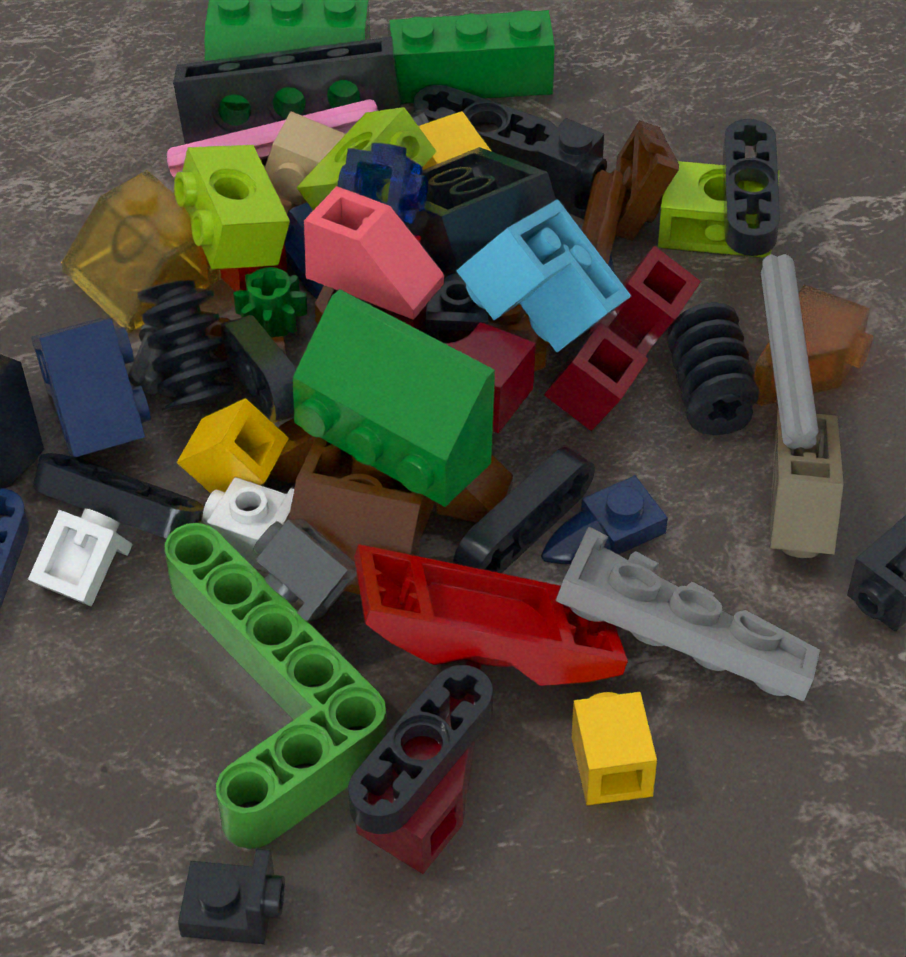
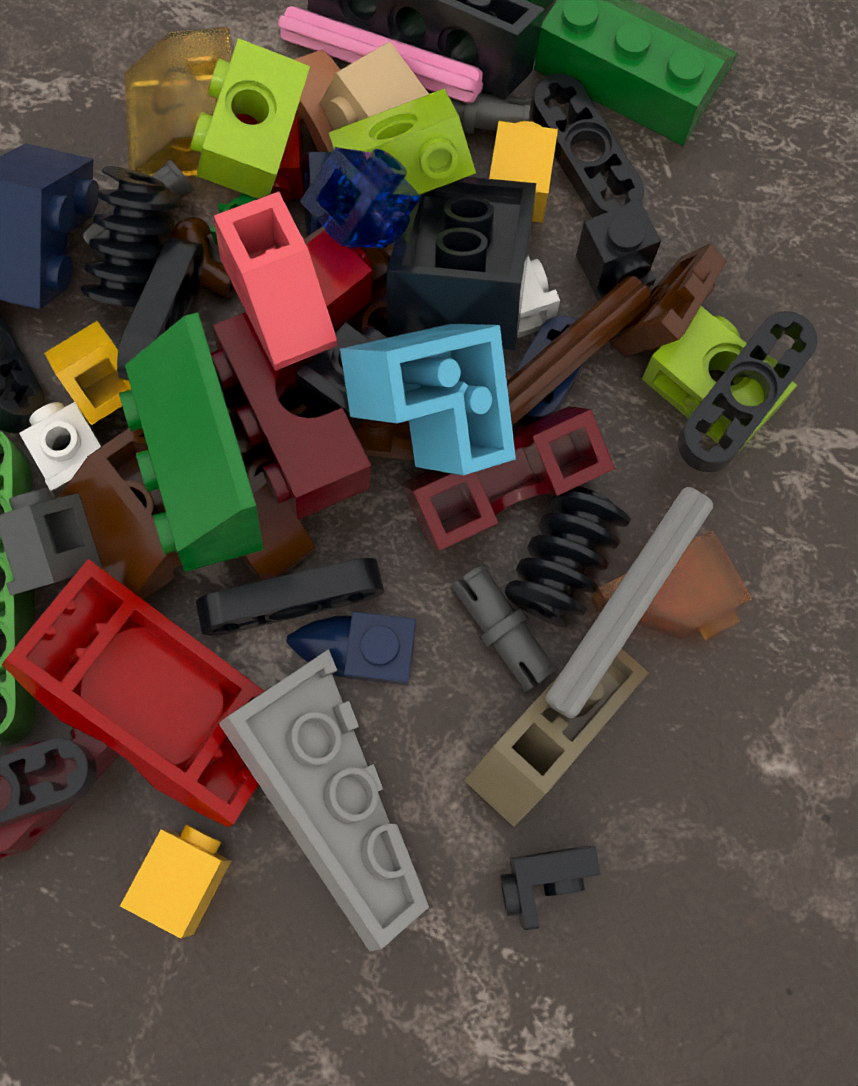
camera: 35 degrees right, 25 degrees up
(706, 443) = (503, 628): none -> dark grey pin

